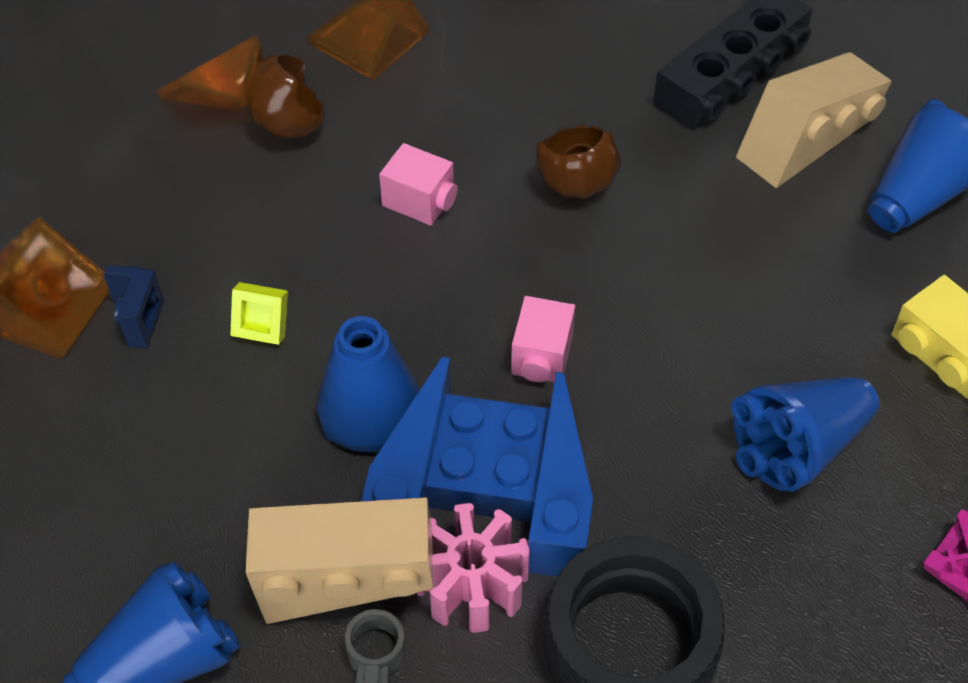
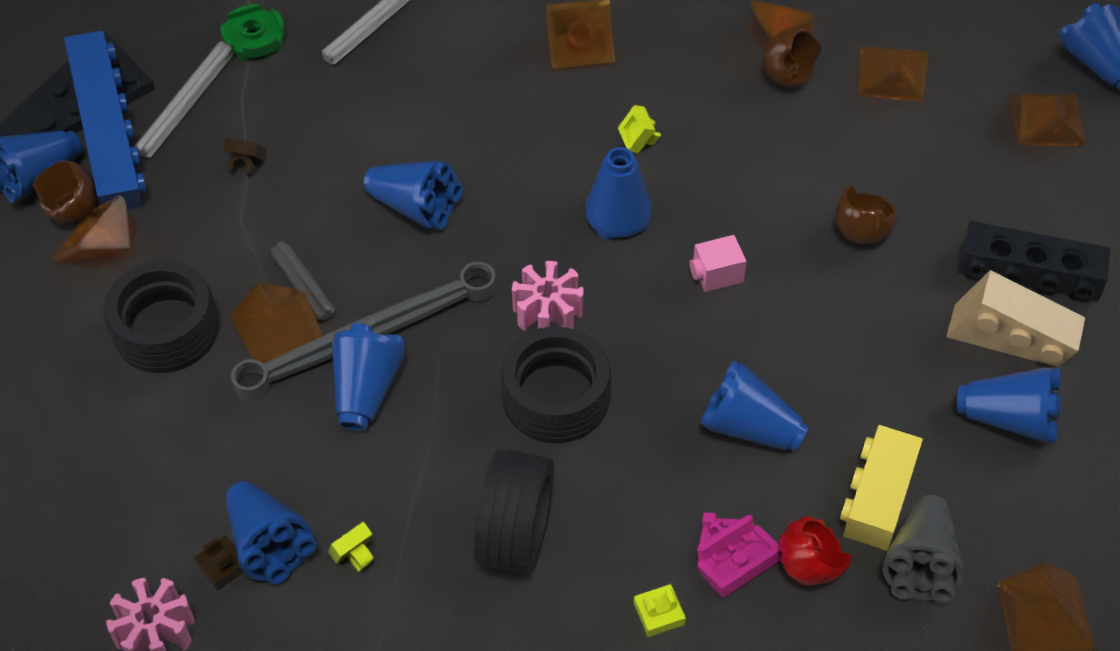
camera: 60 degrees right, 0 degrees up
(137, 302) = (602, 77): dark blue bracket -> none
(337, 555) = (501, 228): tan wedge -> none
(418, 184) = (784, 152): bright pink brick -> none
(494, 458) = (617, 271): blue wedge -> none

